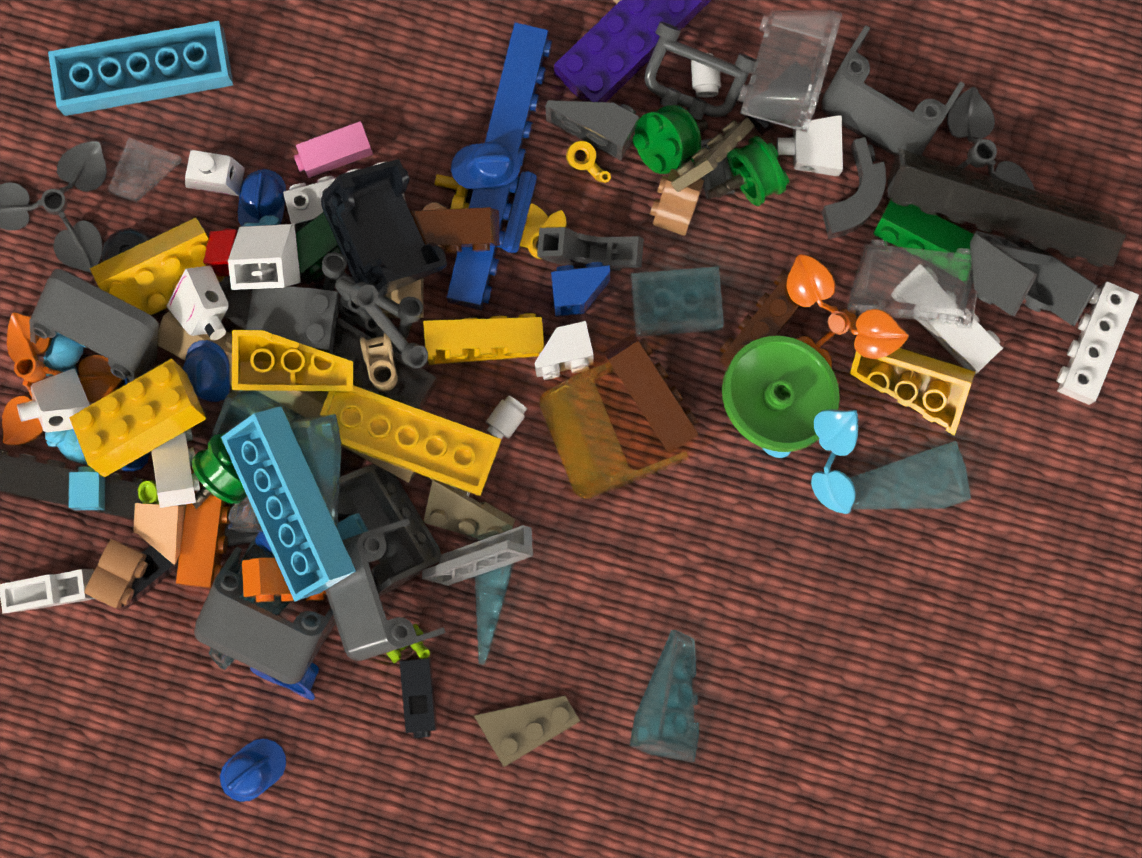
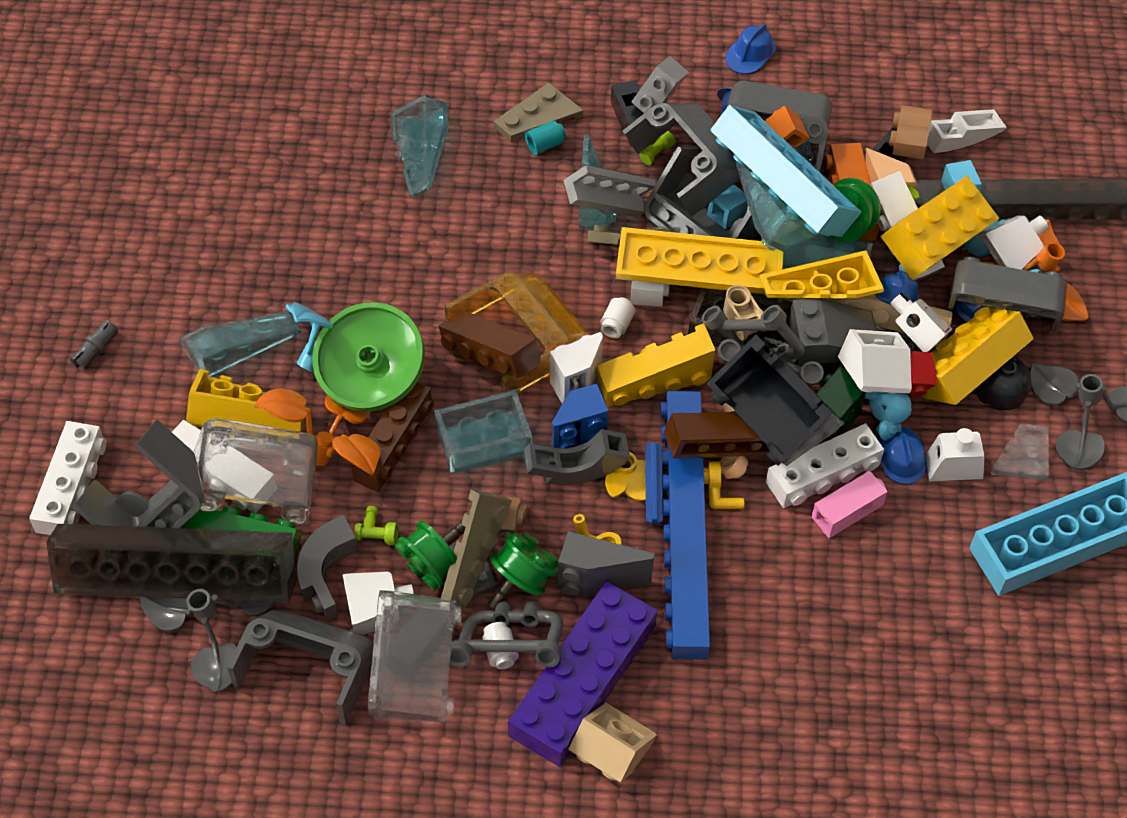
camera: 165 degrees right, 25 degrees down
(384, 693) = (660, 84): none -> light grey brick
(485, 165) = (697, 507): blue piece -> none
(526, 682) = (545, 137): none -> teal brick
(809, 226) = (368, 529): none -> lime piece
(1060, 506) = (94, 345): none -> dark grey pin

